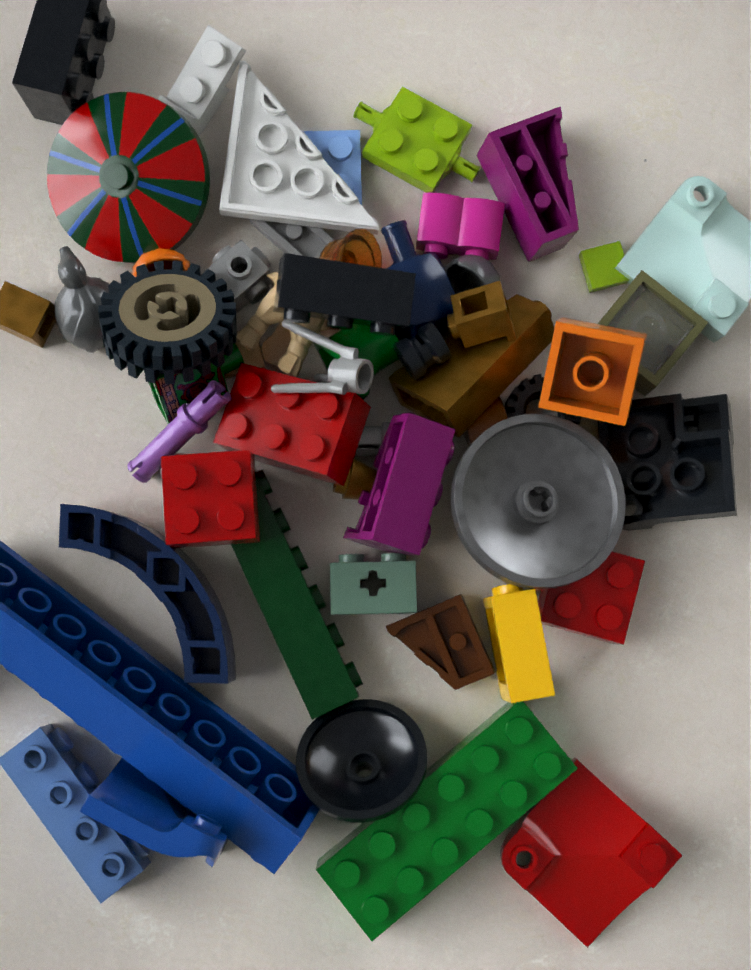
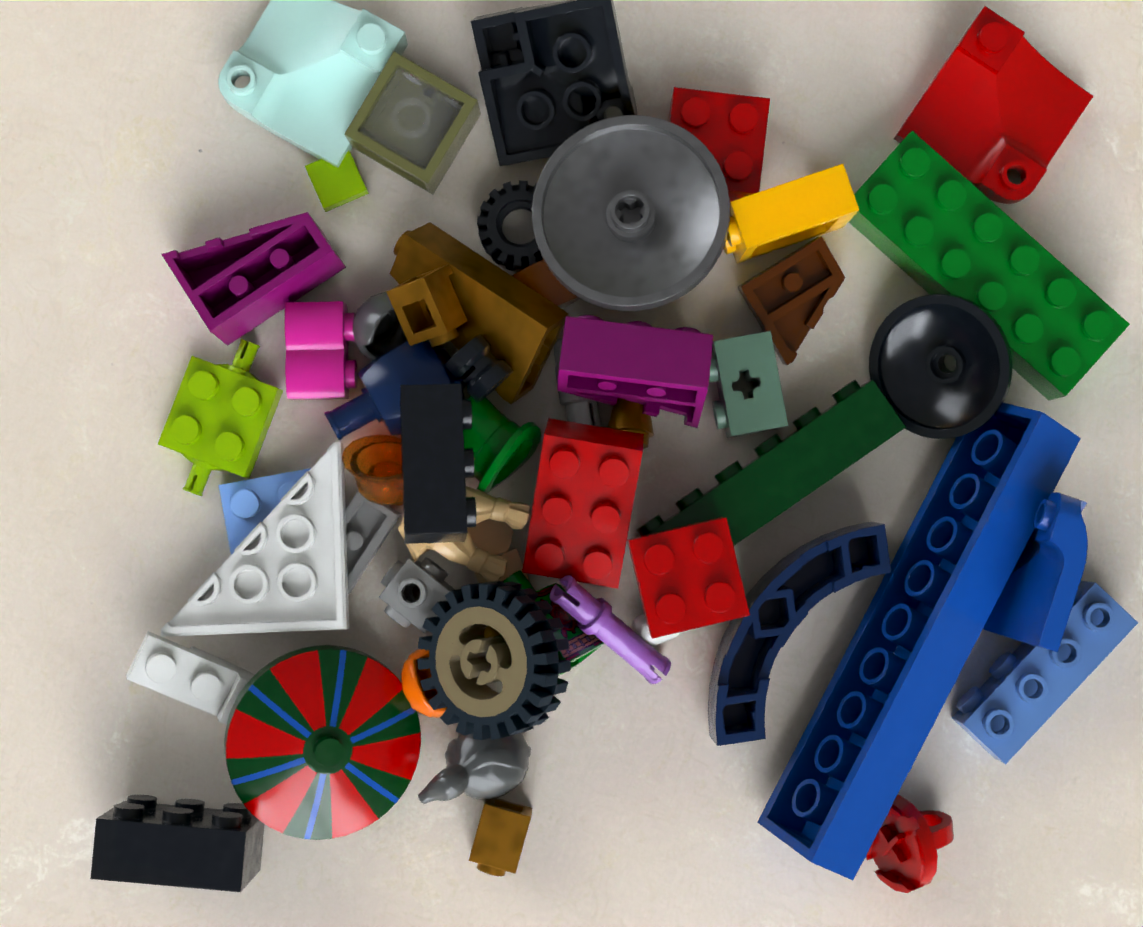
camera: 90 degrees left, 5 degrees up
(343, 375) = (524, 447): light grey plant -> none
(592, 370) = (475, 171): orange brick -> none

